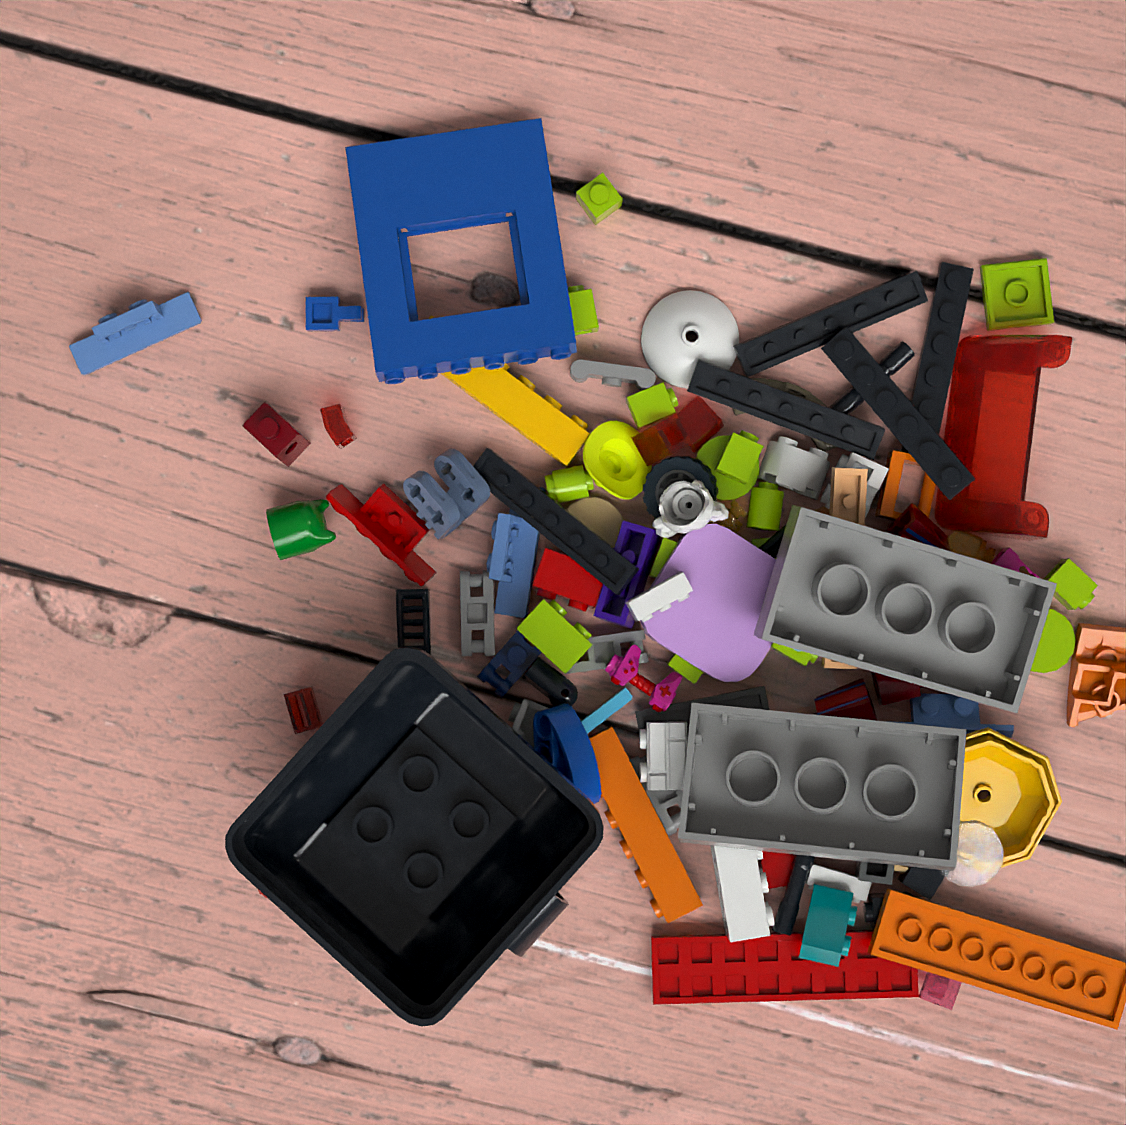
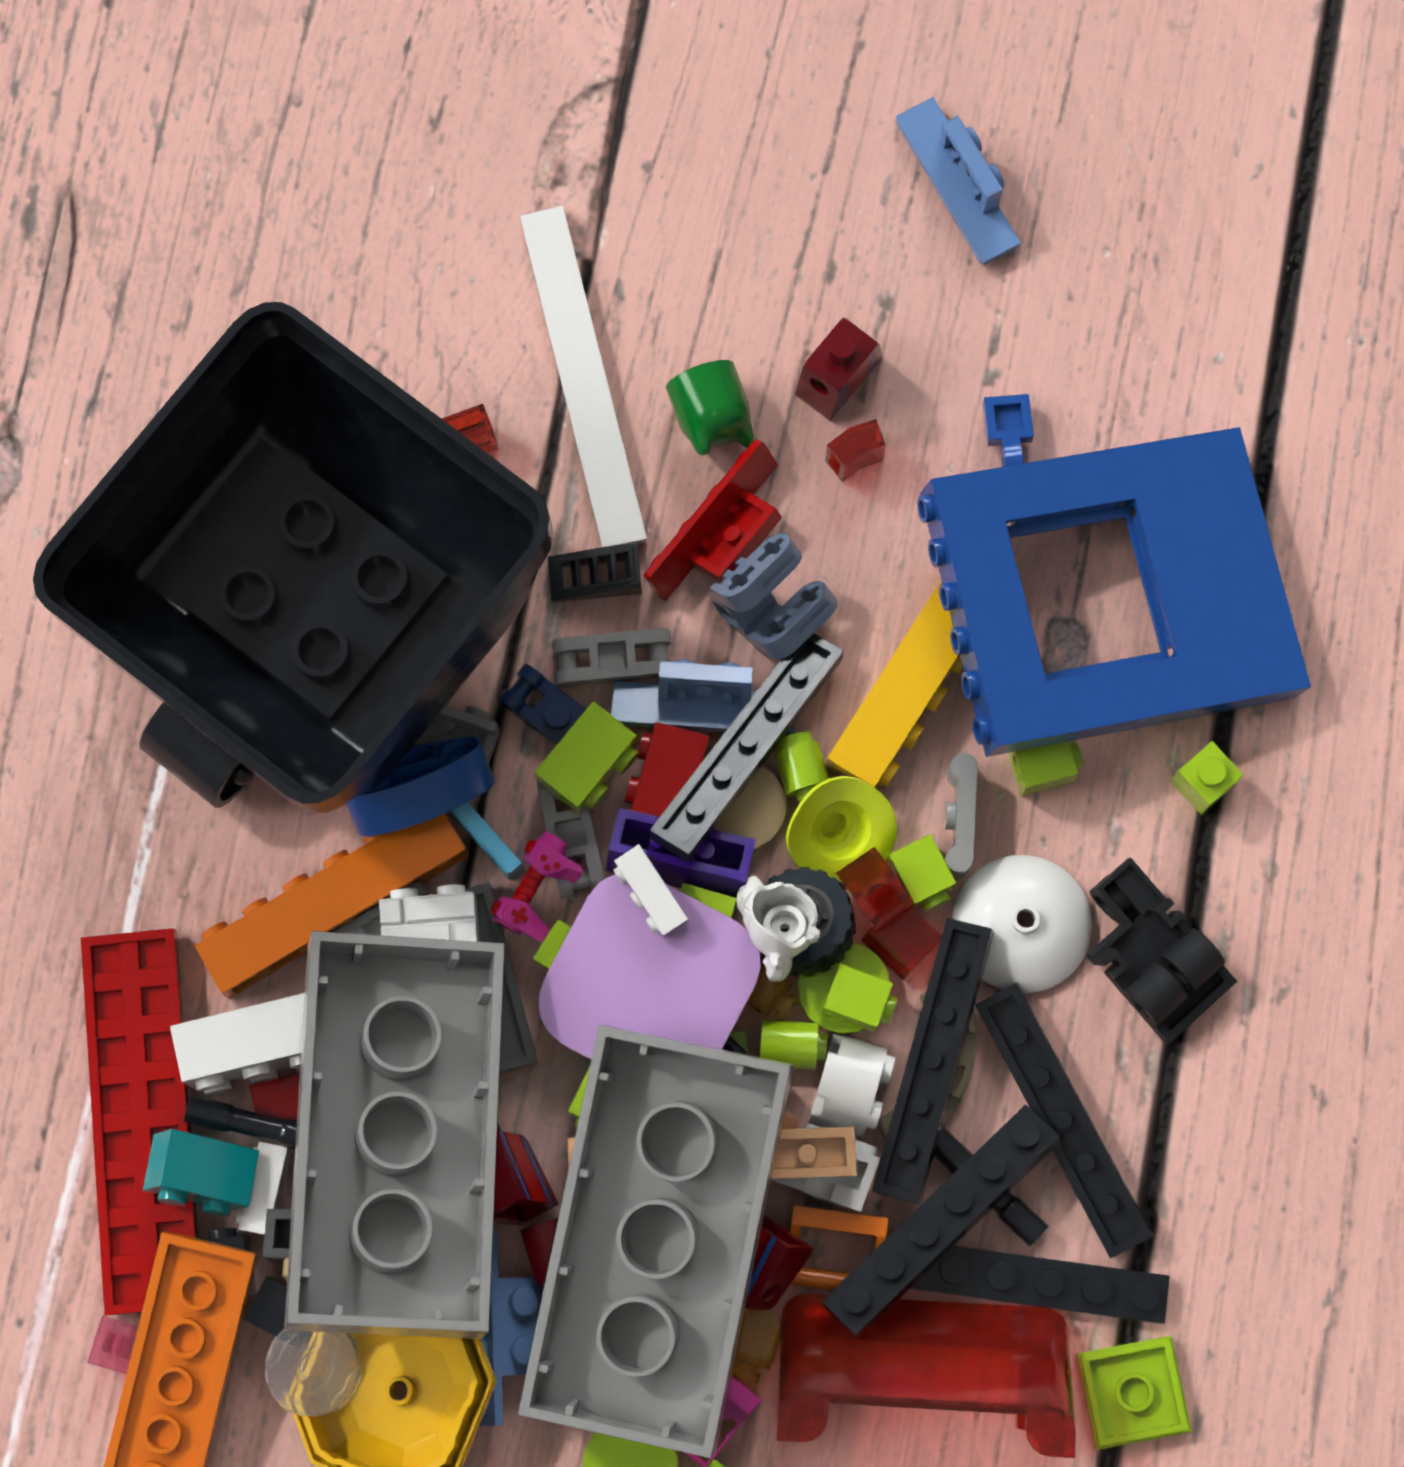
camera: 90 degrees right, 10 degrees down
(264, 620) = (583, 378): none -> white tile
(551, 683) = (521, 764): black piece -> none
(721, 248) = (1156, 957): none -> black plate

